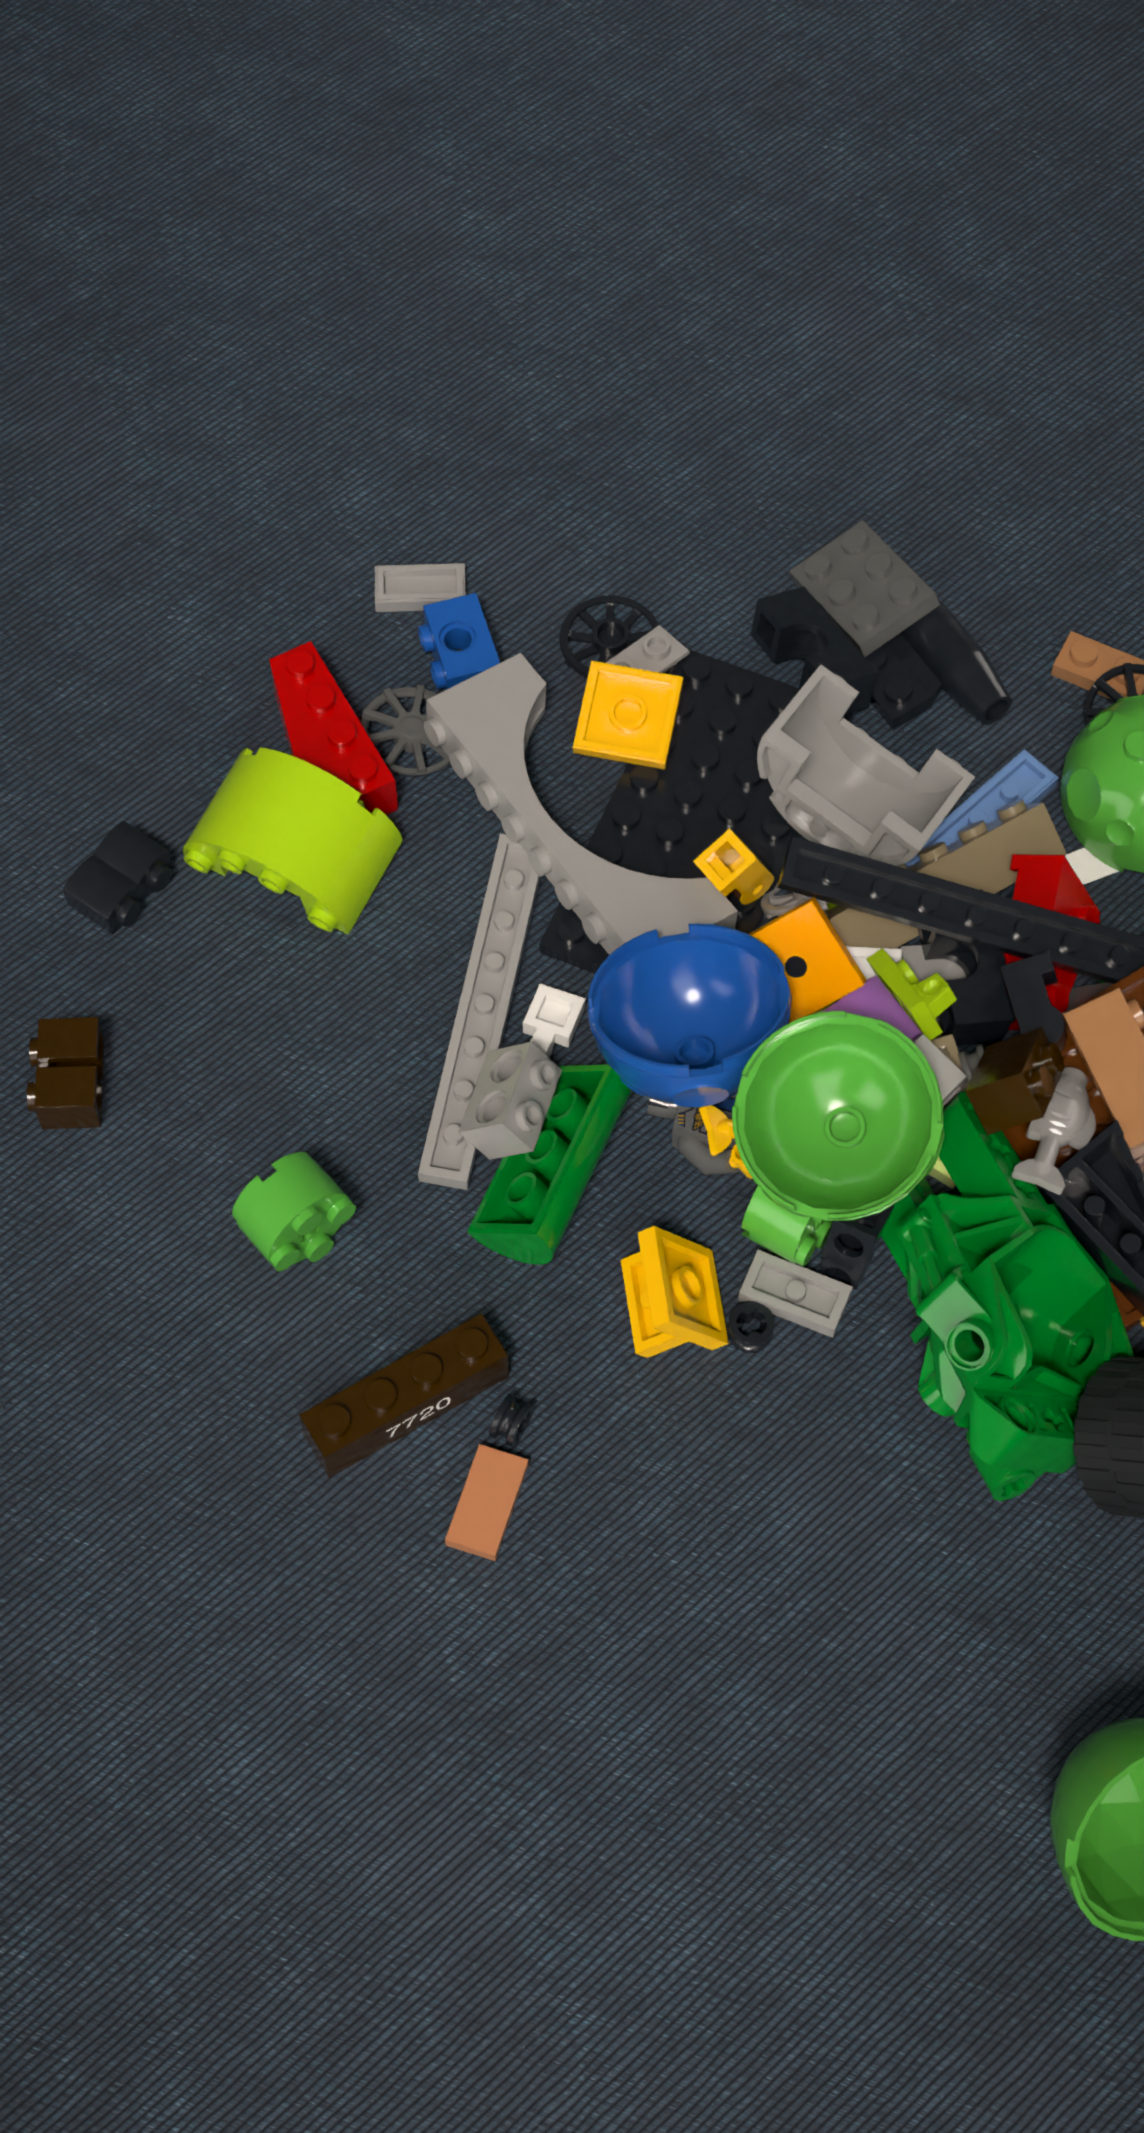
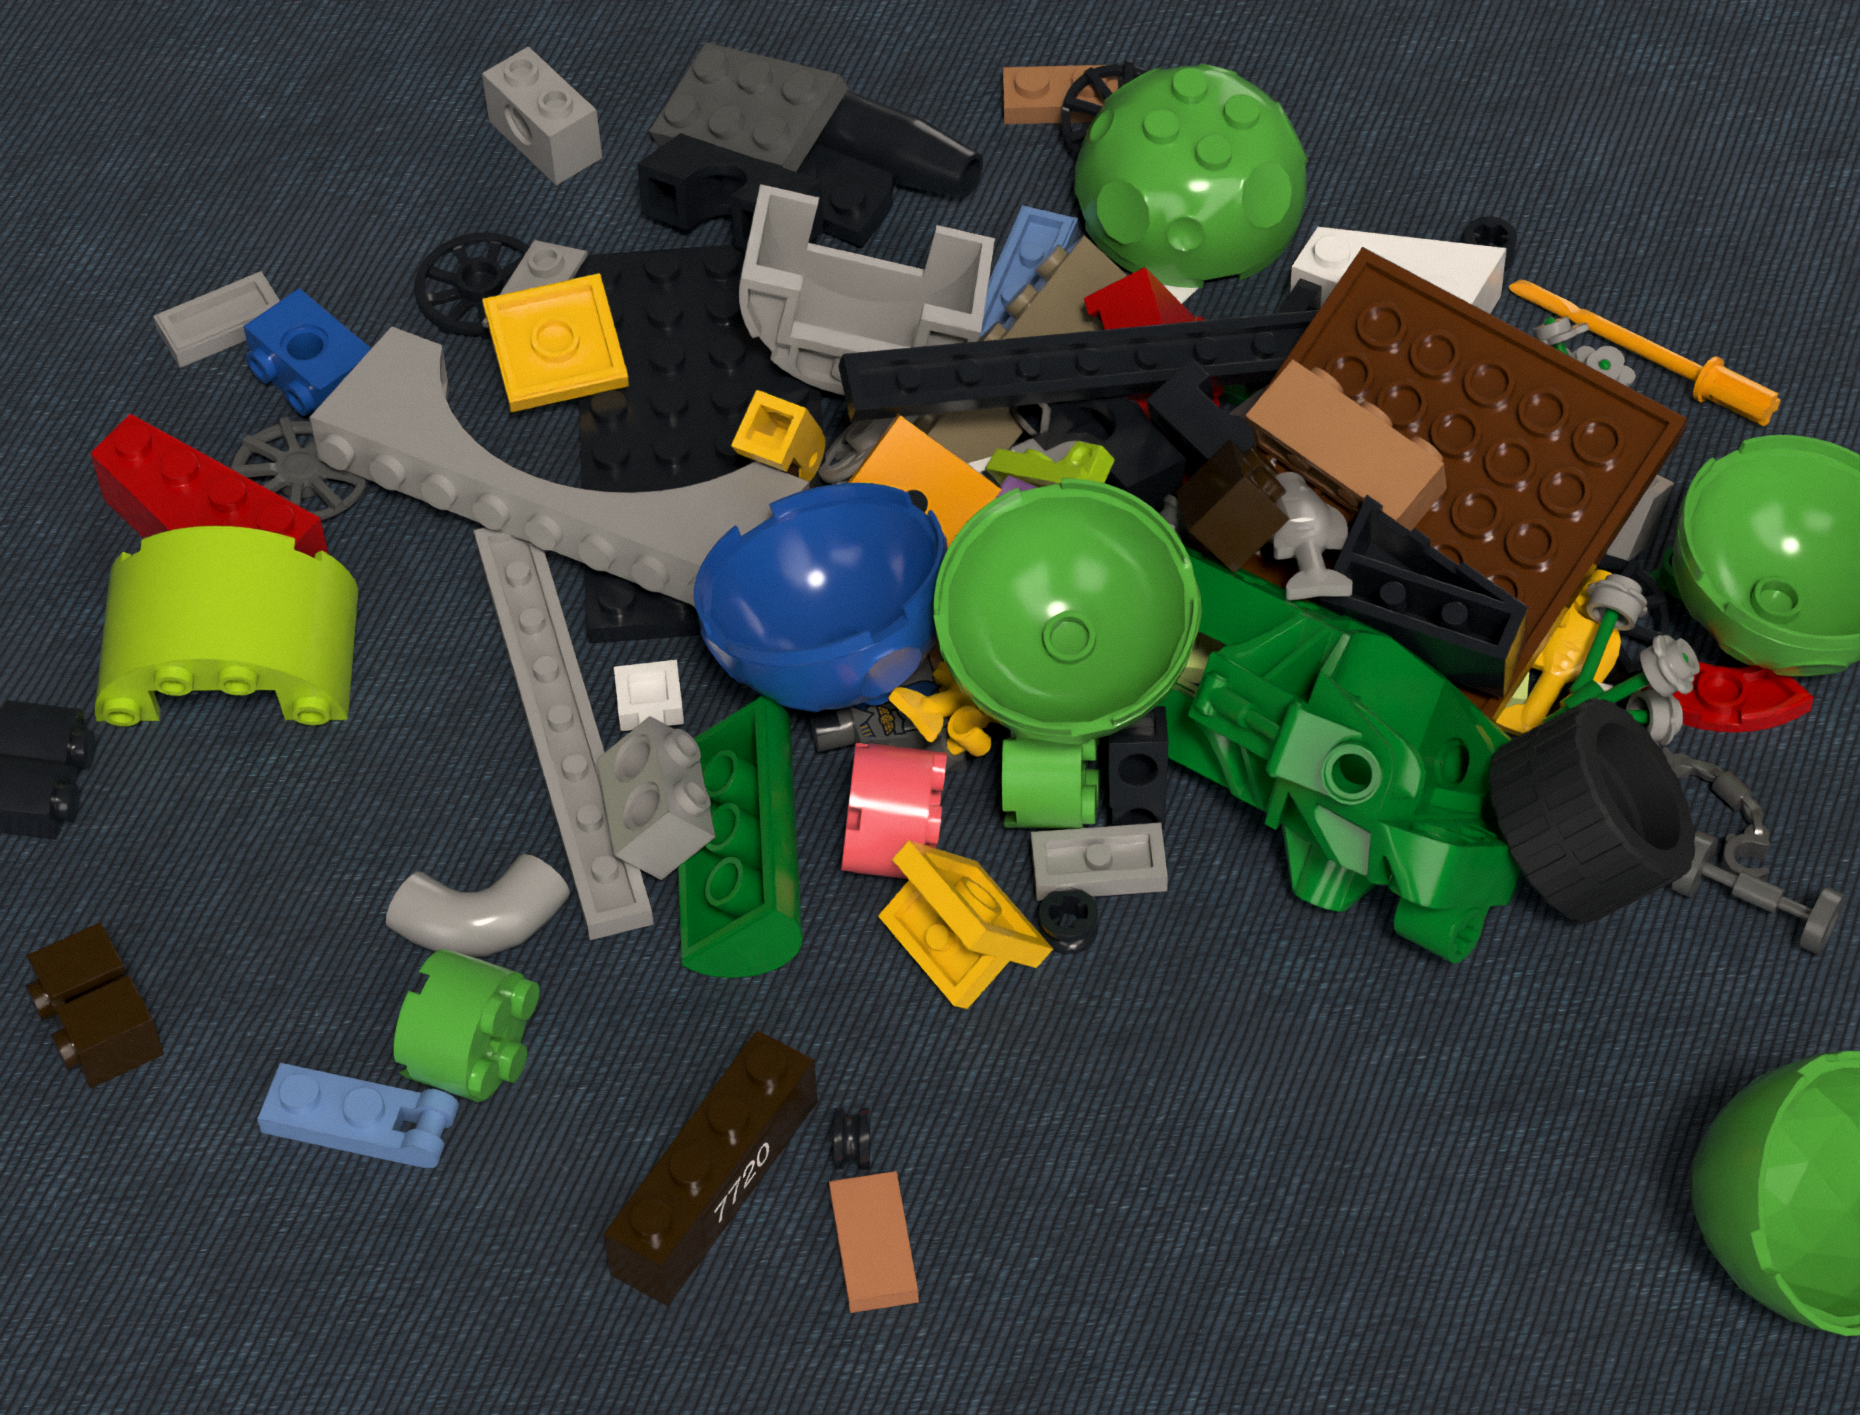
camera: 25 degrees left, 10 degrees down
(198, 1236) = (357, 1115): none -> medium blue plate
(352, 1133) = (481, 920): none -> light grey cylinder
(666, 1186) = (890, 802): none -> coral brick
(718, 527) = (542, 115): none -> light grey brick

